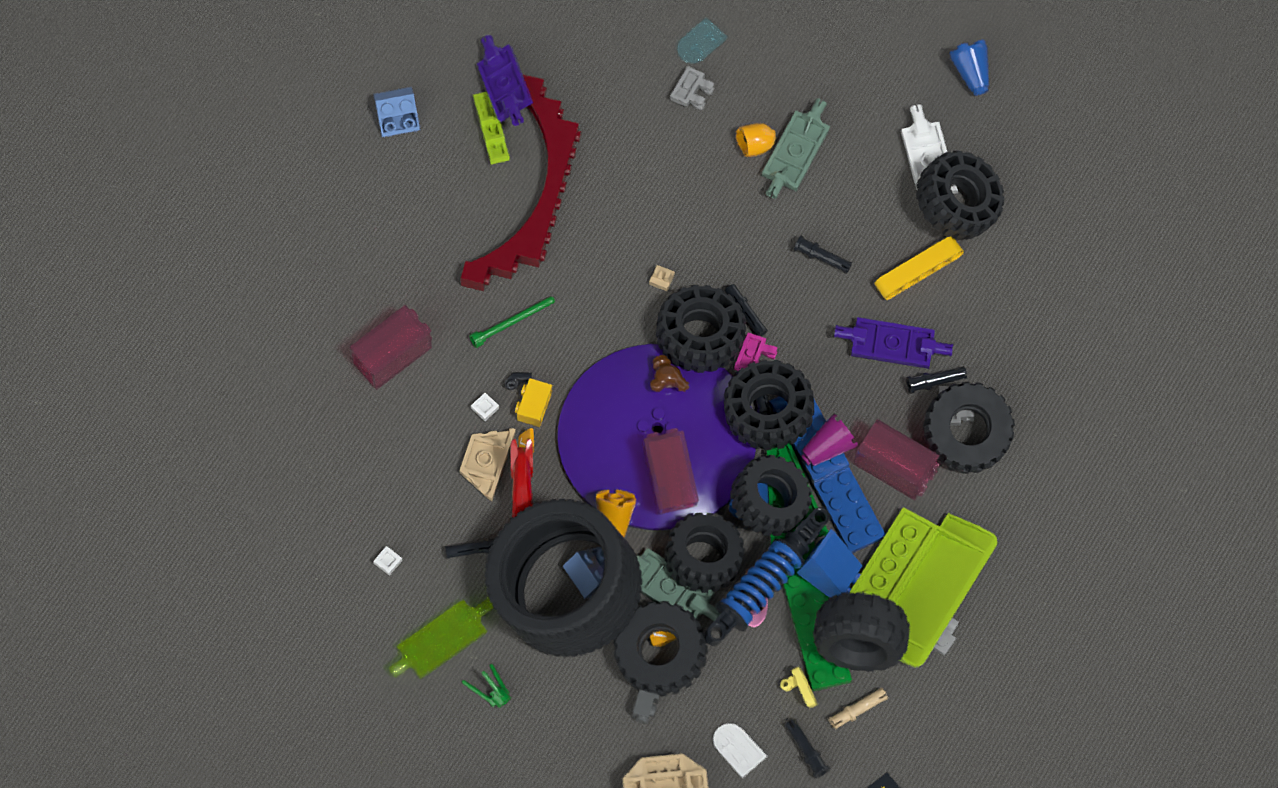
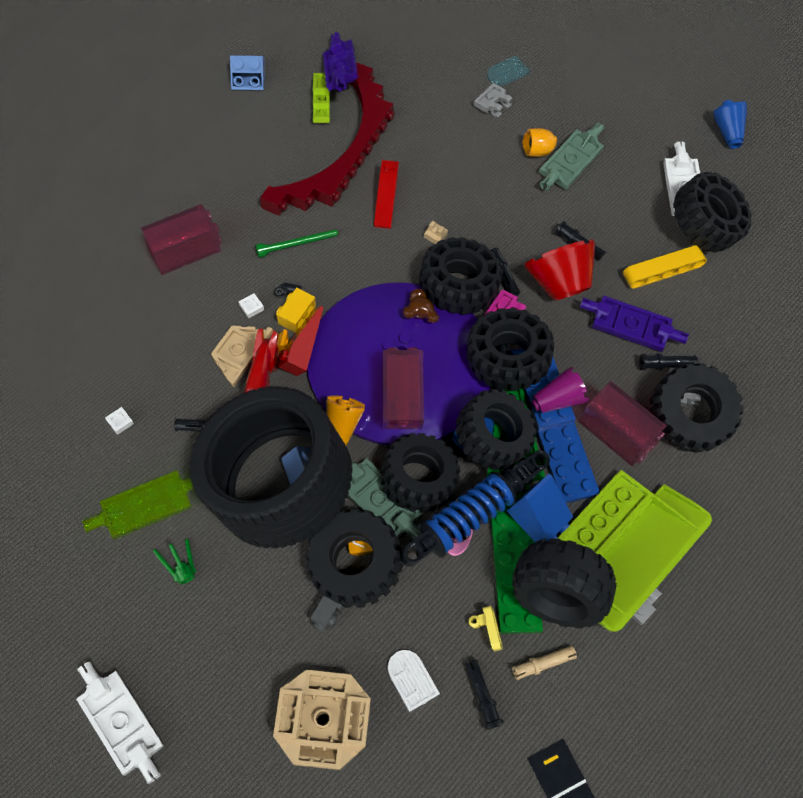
camera: 10 degrees right, 5 degrees down
(549, 447) = (297, 353): none -> red slope
(597, 241) = (386, 194): none -> red slope
(810, 301) = (564, 269): none -> red cone

